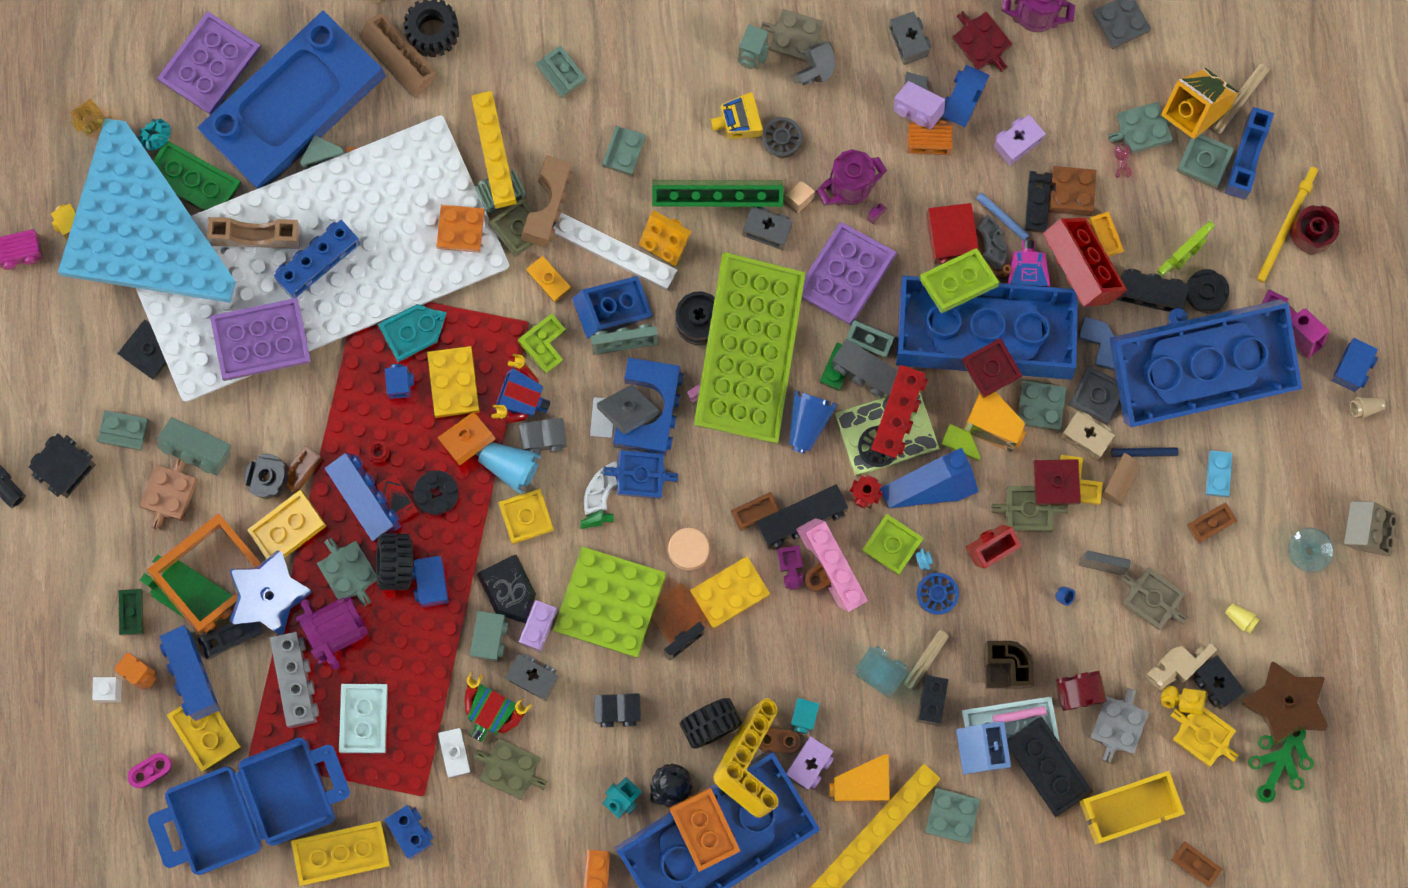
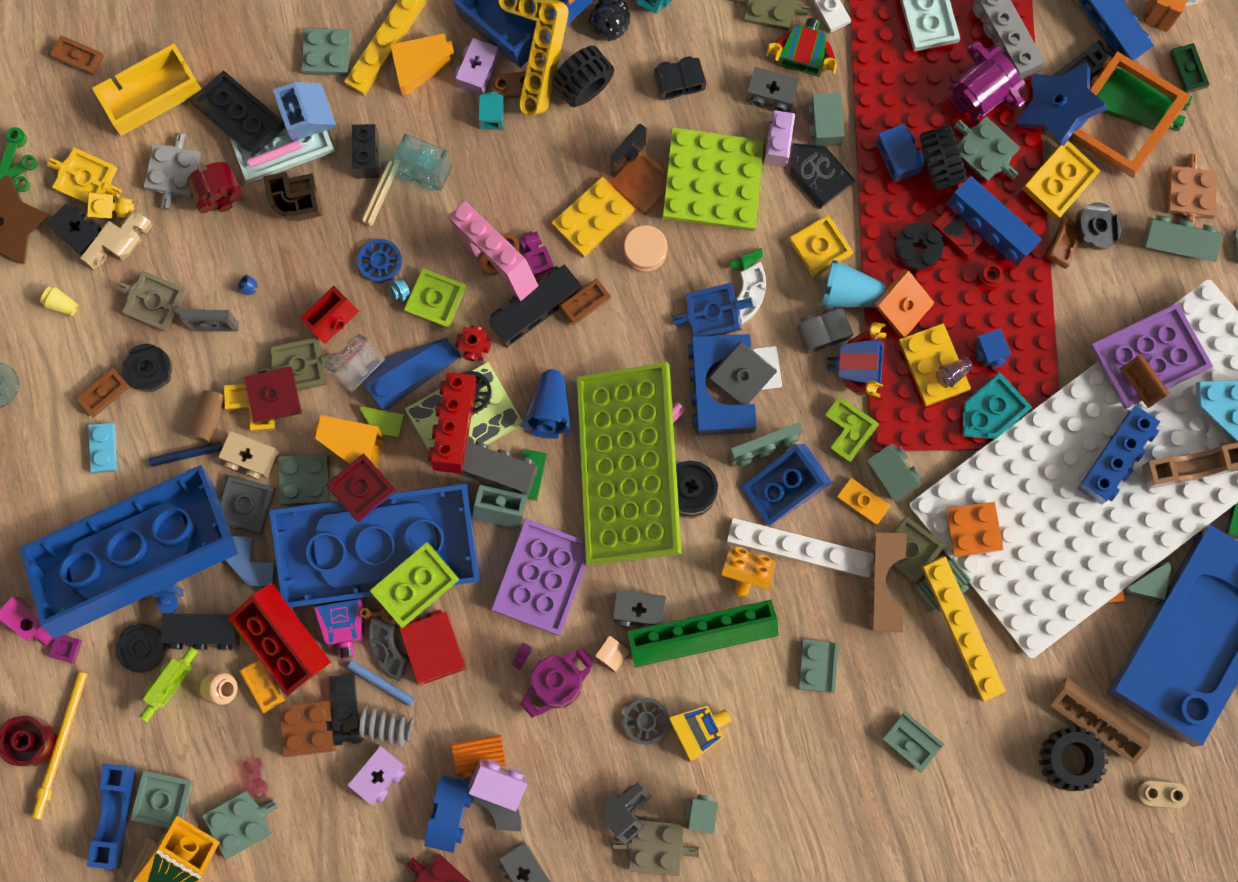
camera: 170 degrees right, 0 degrees up
(276, 312) = (1144, 381): none -> dark orange plate
(440, 364) = (953, 372): none -> cone
(515, 294) = (895, 471): none -> sand green brick
(977, 495) = (355, 362): none -> clear brick
(1004, 176) = (385, 727): none -> light grey piece
(1143, 237) = (218, 688): none -> light nougat head
(1177, 528) = (136, 360): none -> black plate

